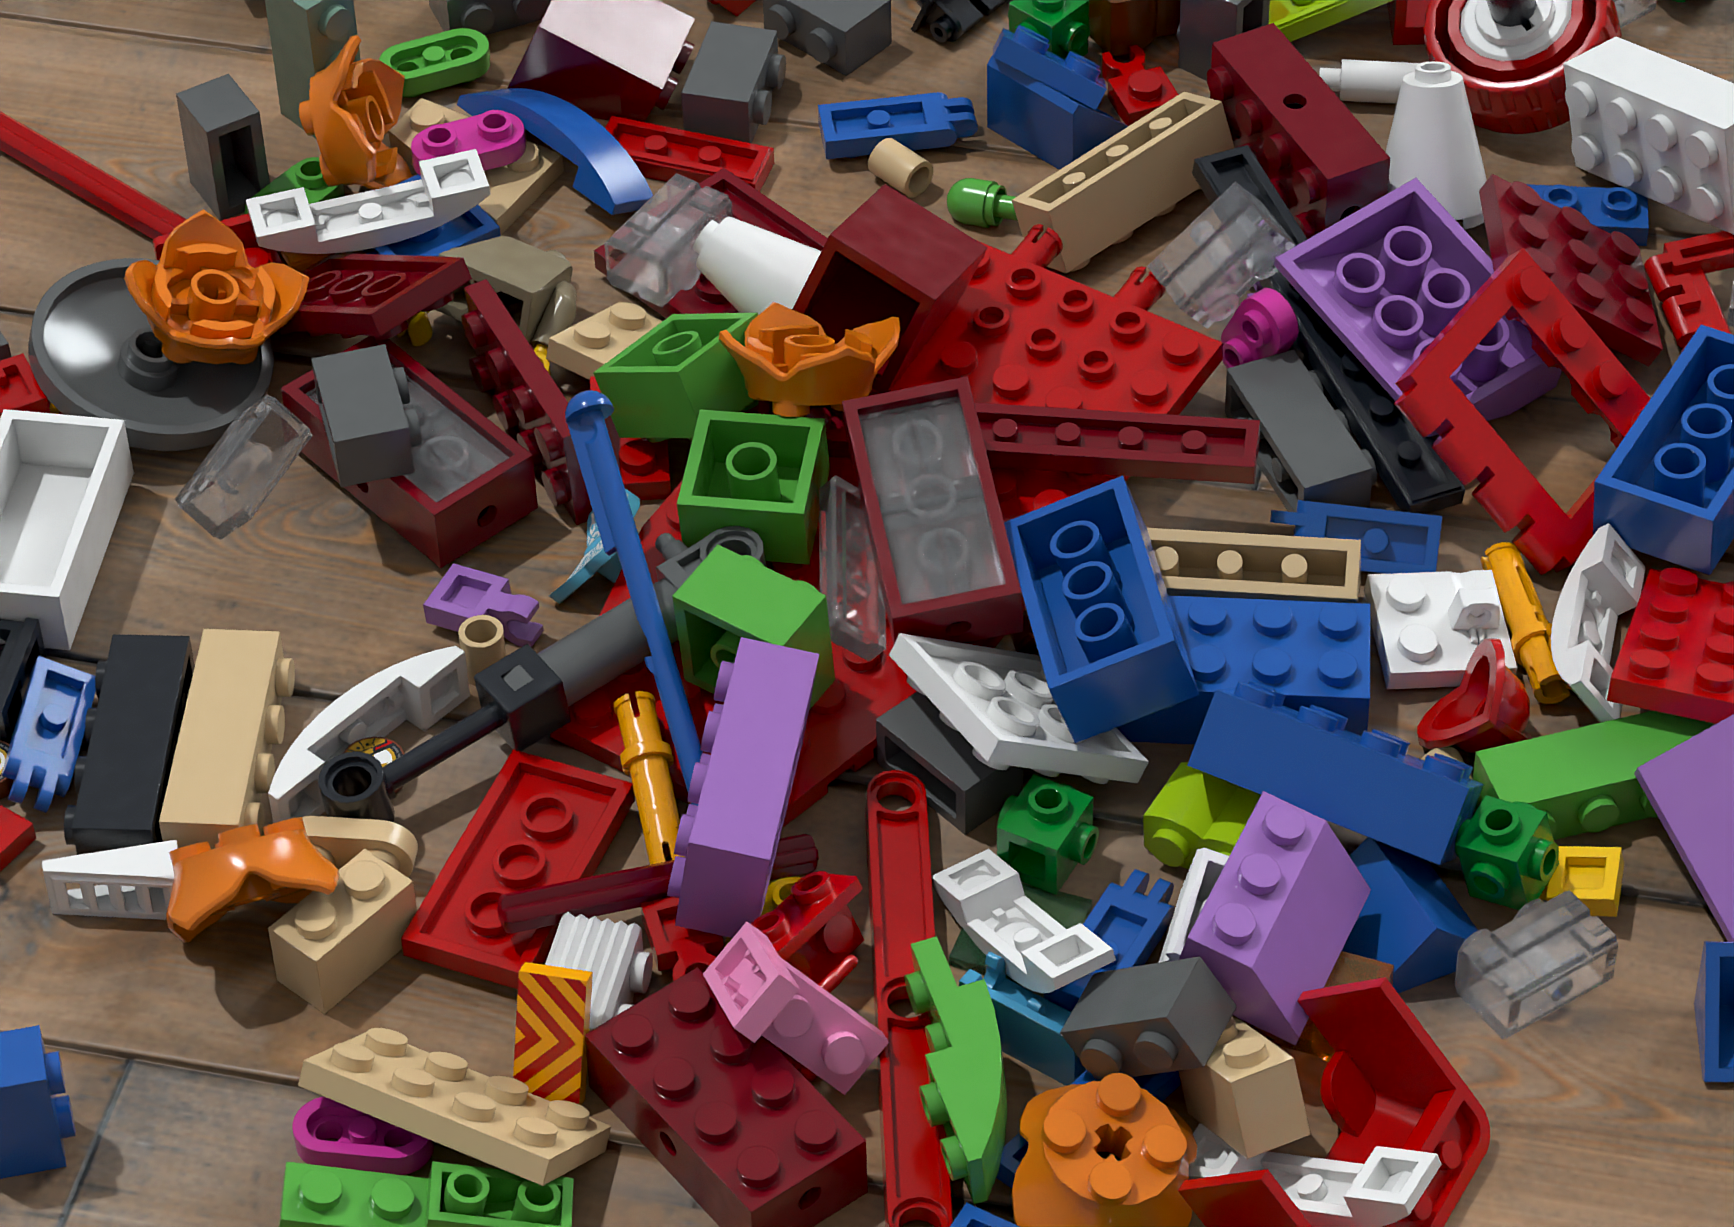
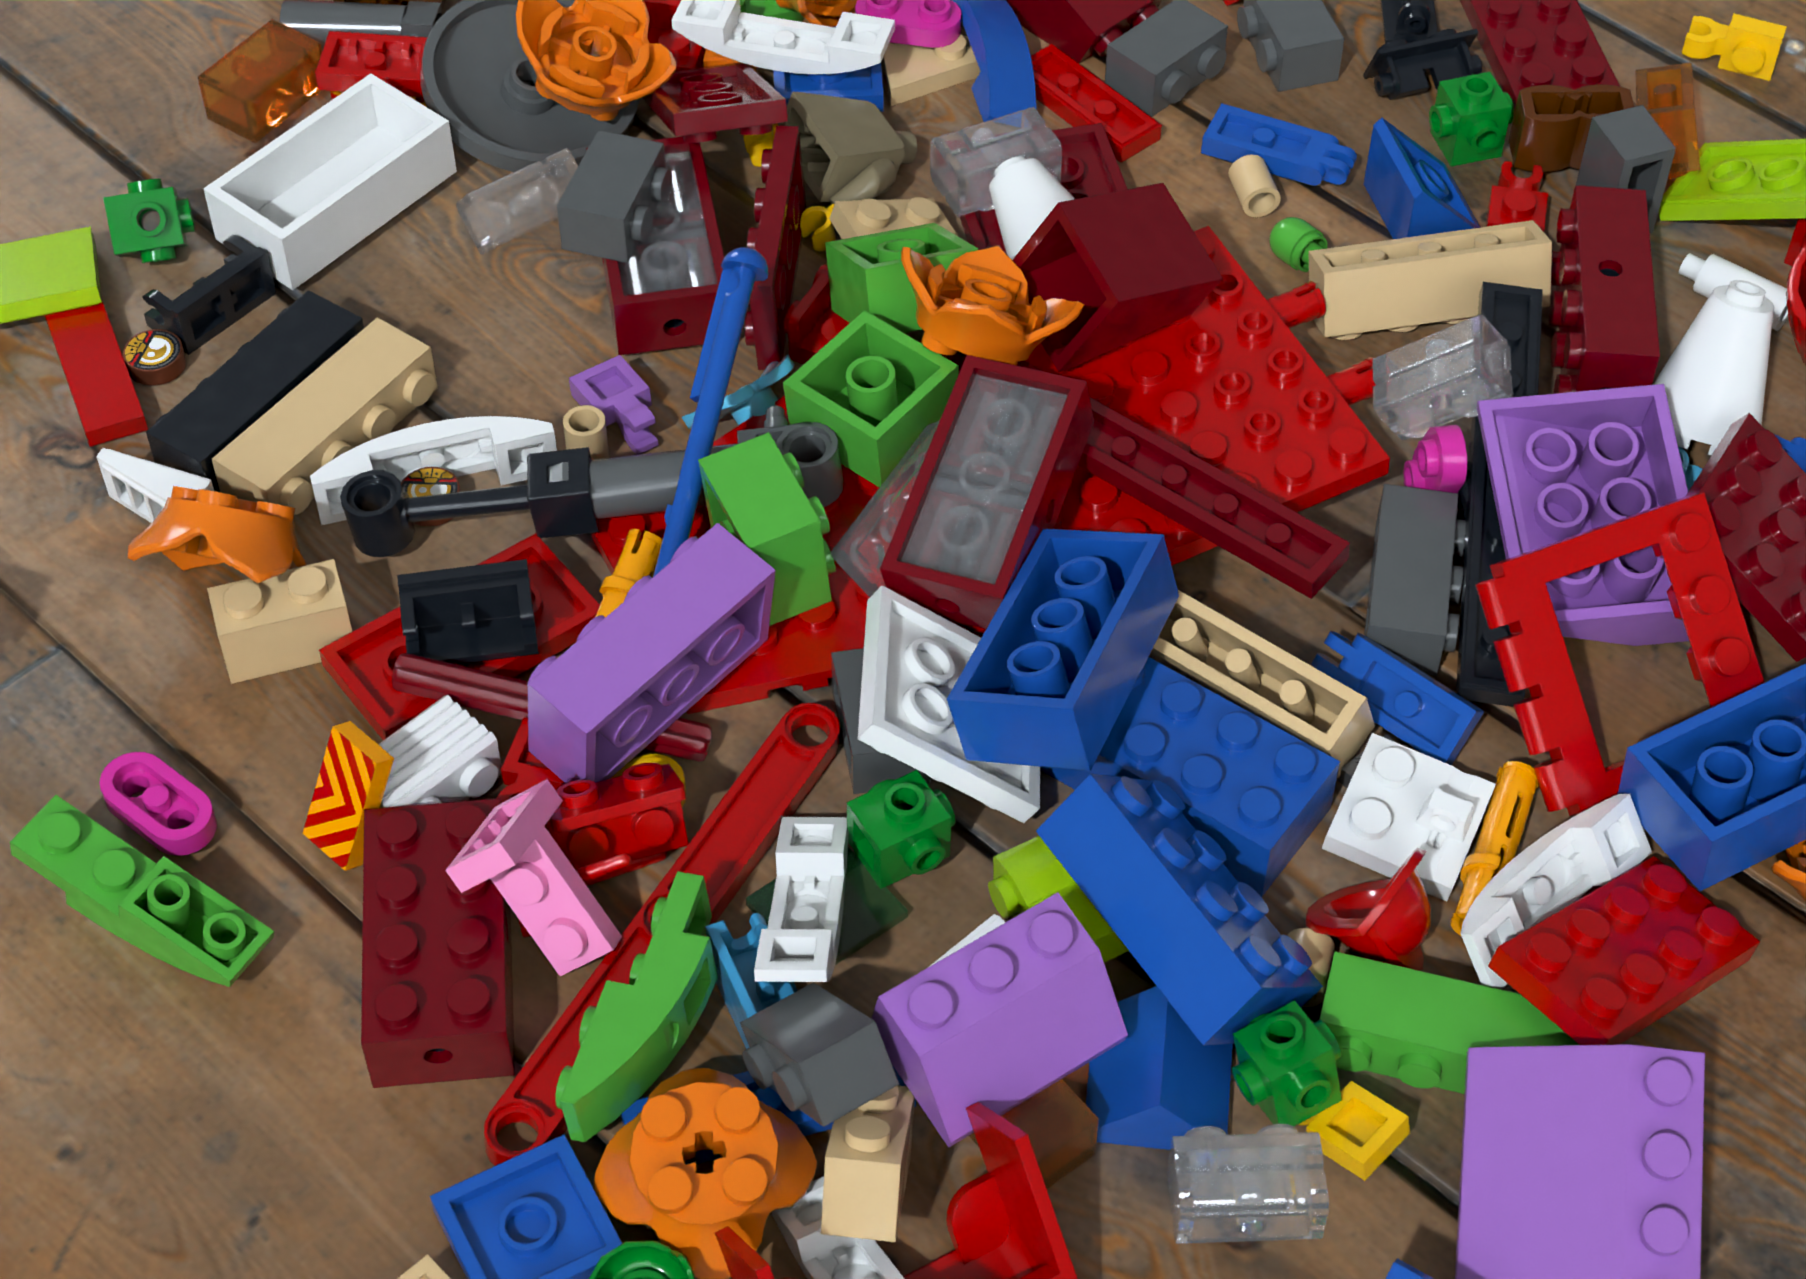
camera: 30 degrees right, 5 degrees up
(48, 731) = (207, 345): hinge -> none
(344, 838) = (360, 562): tan plate -> none
(456, 1105) = (233, 819): tan plate -> none
(527, 836) = (469, 612): none -> black hinge
(1071, 76) = (1423, 140): blue plate -> none
(1126, 923) = (893, 953): blue hinge -> none

